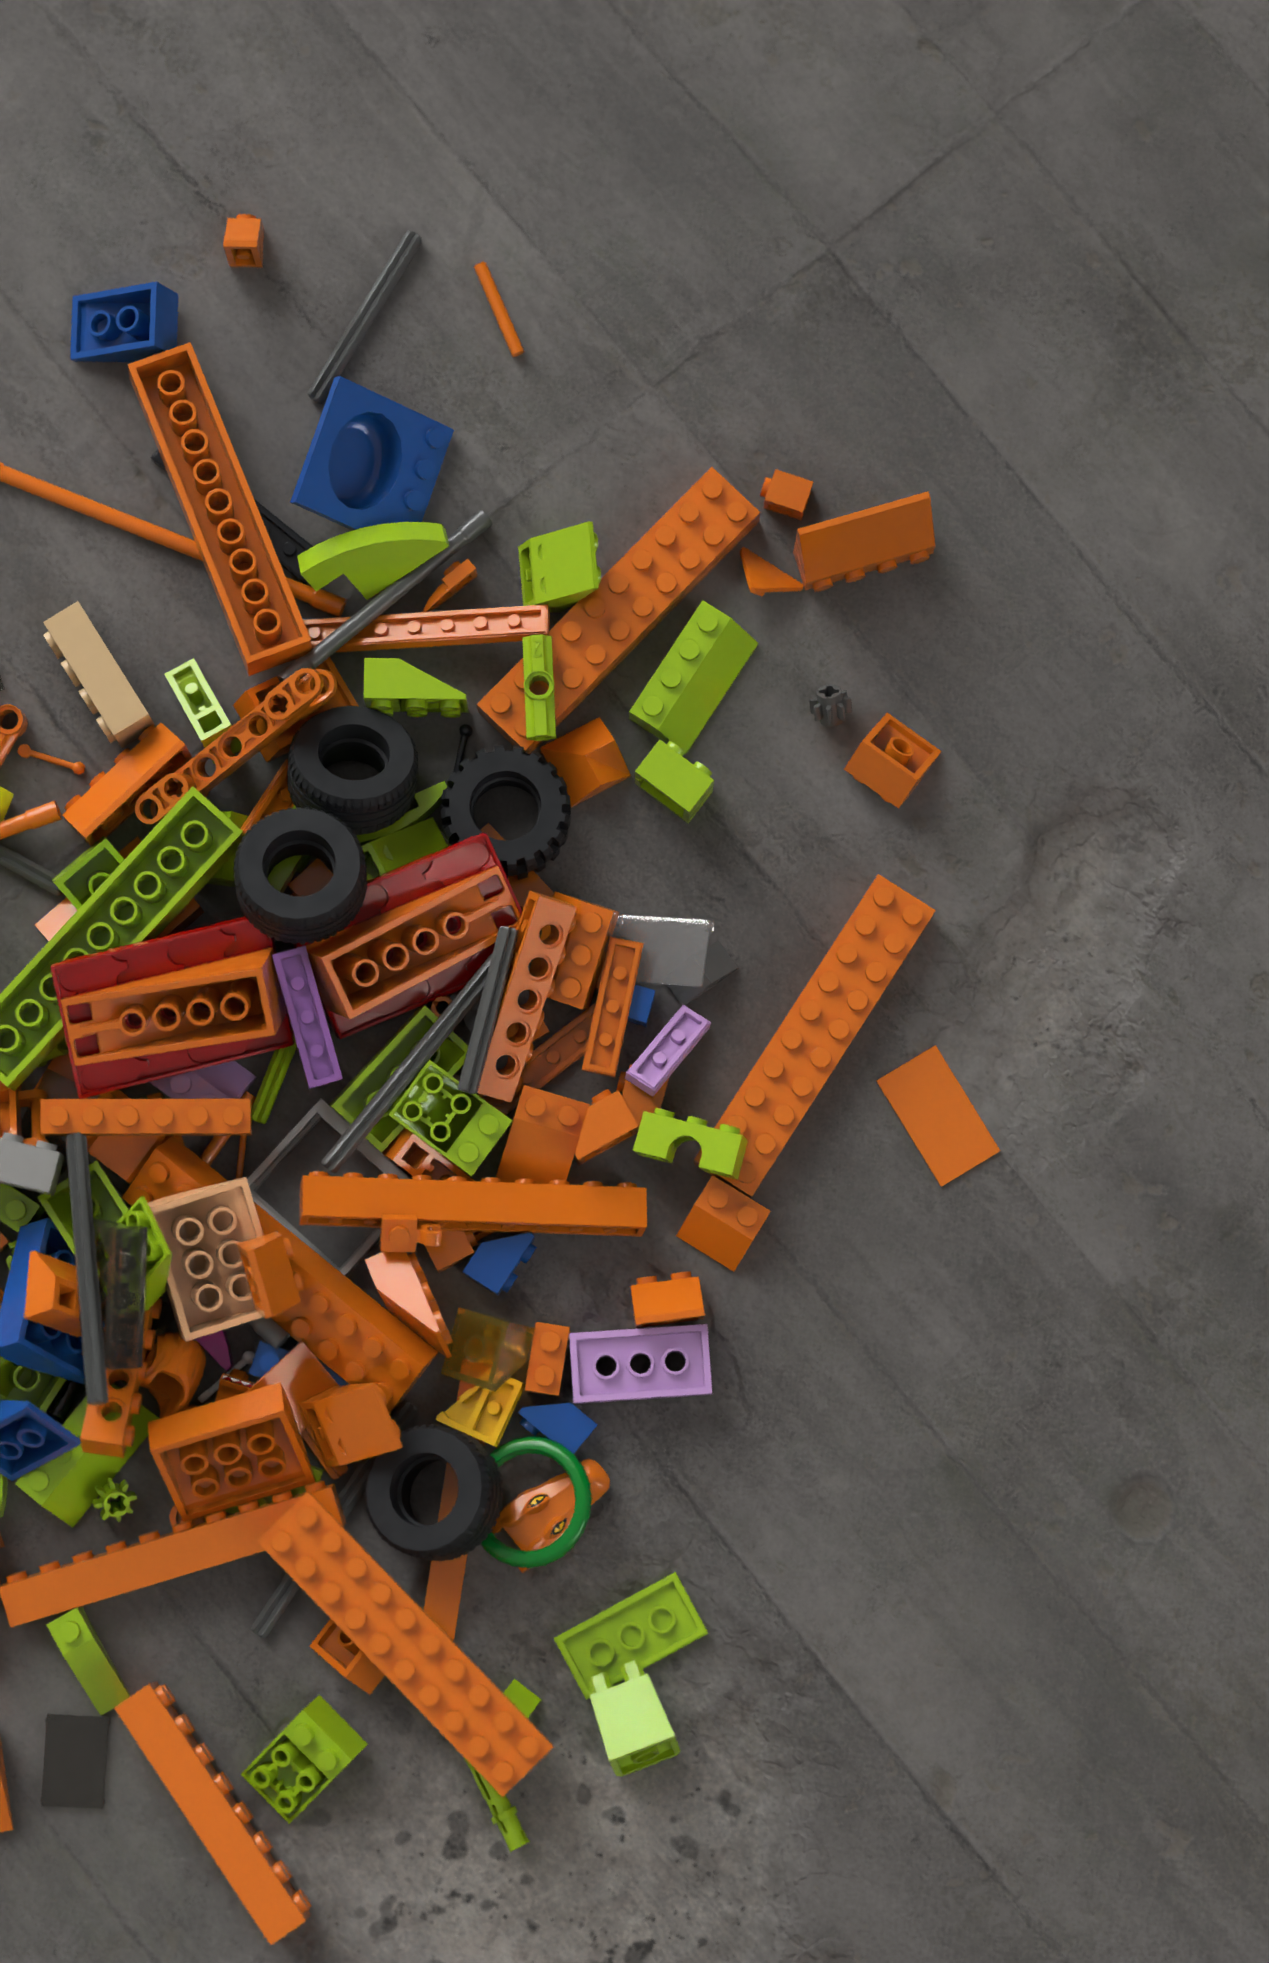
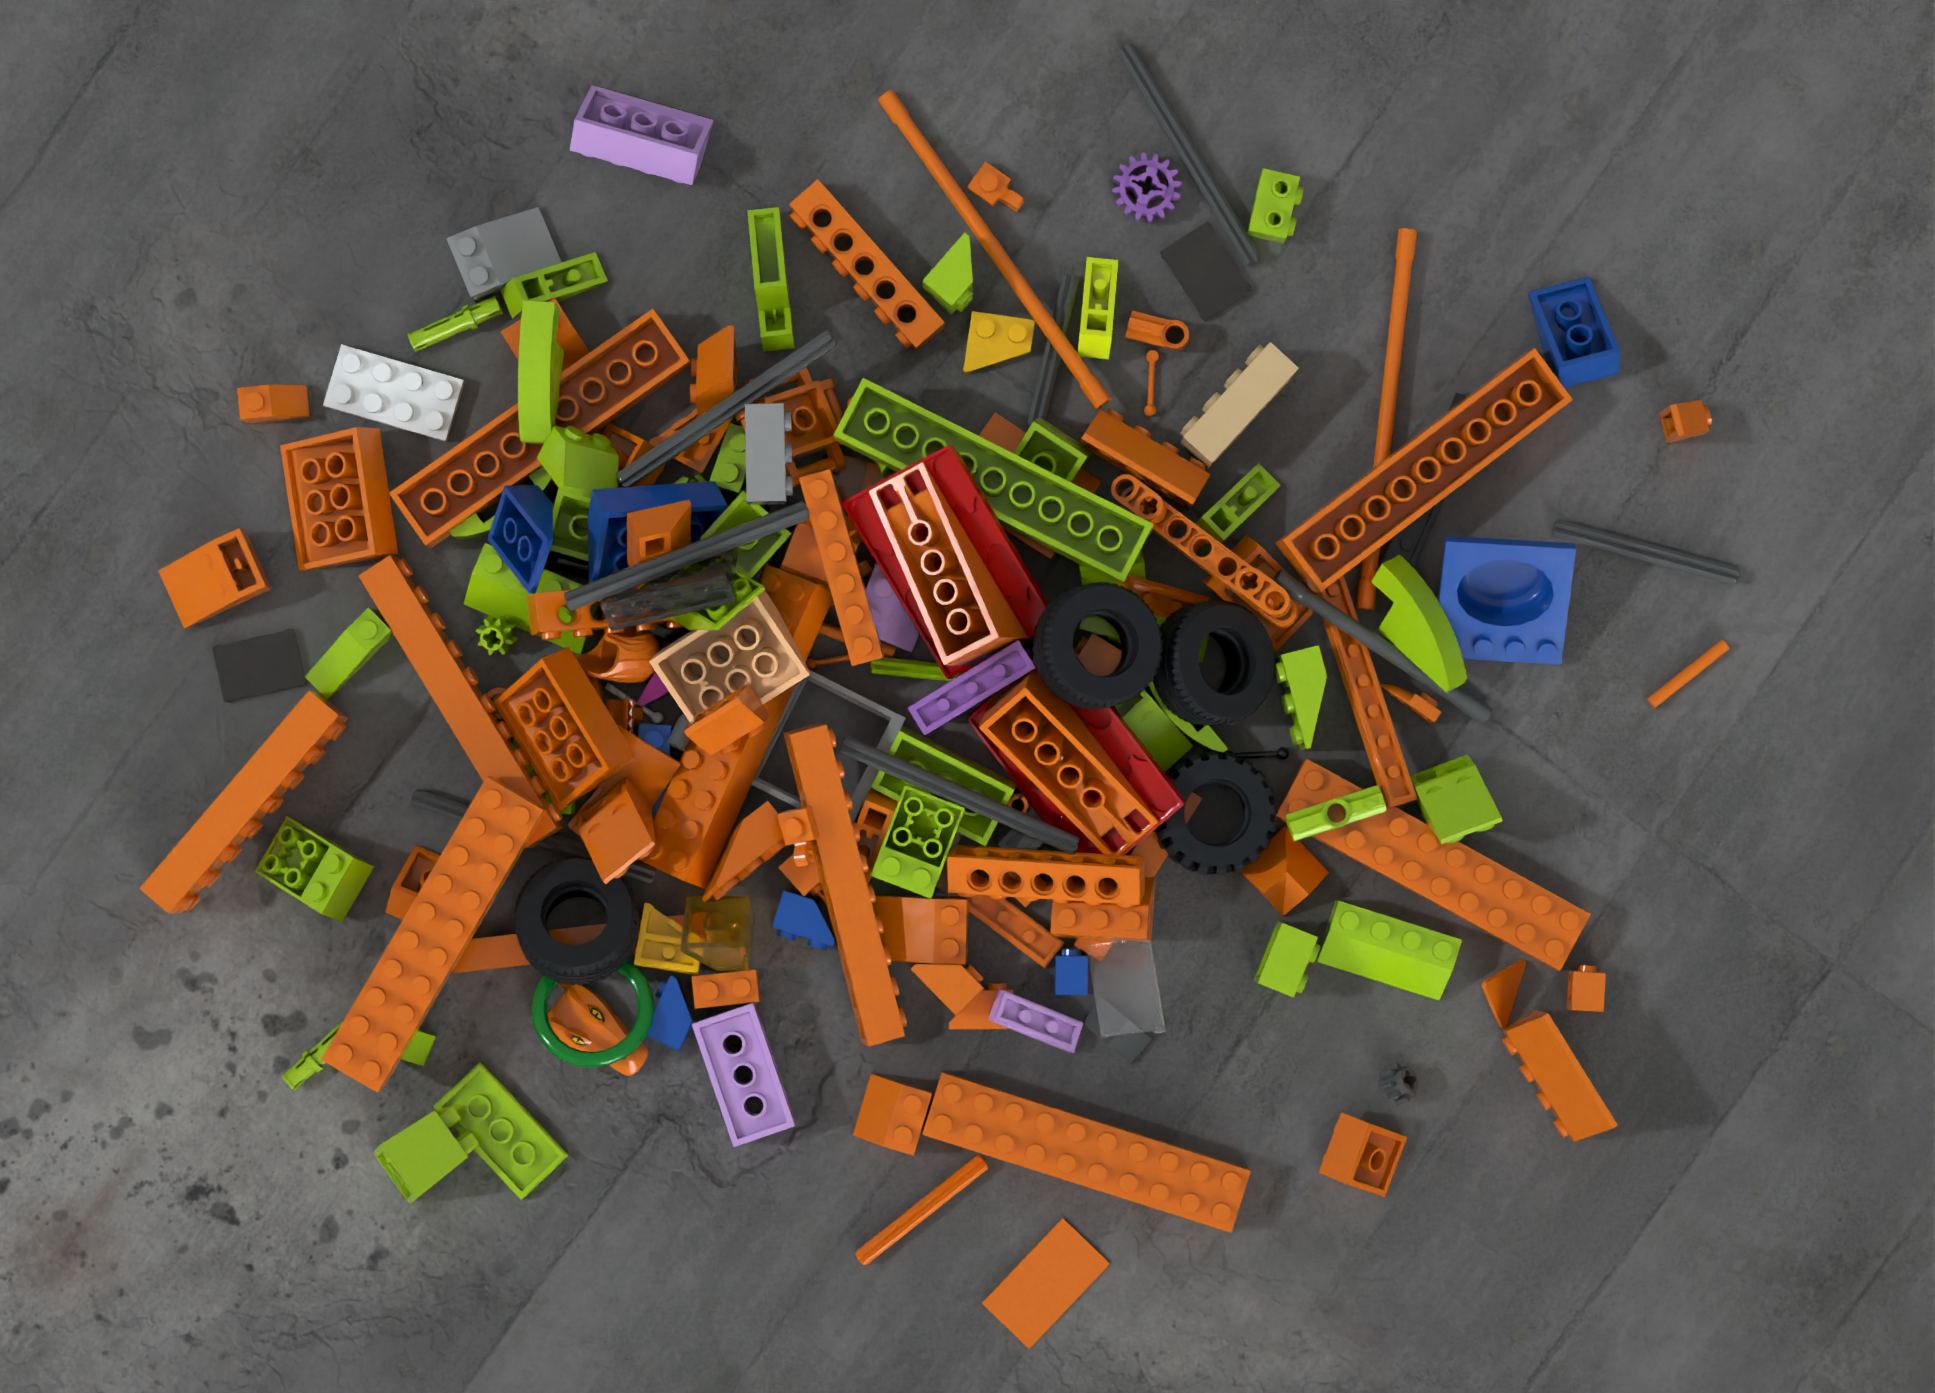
camera: 75 degrees right, 5 degrees up
(488, 1009) = (1024, 849): dark grey axle -> none
(612, 1007) = (1061, 960): orange tile -> none
(662, 1135) = (954, 1038): lime arch -> none
(667, 1300) = (808, 1083): orange slope -> none
(829, 1221) = (921, 1210): none -> orange axle

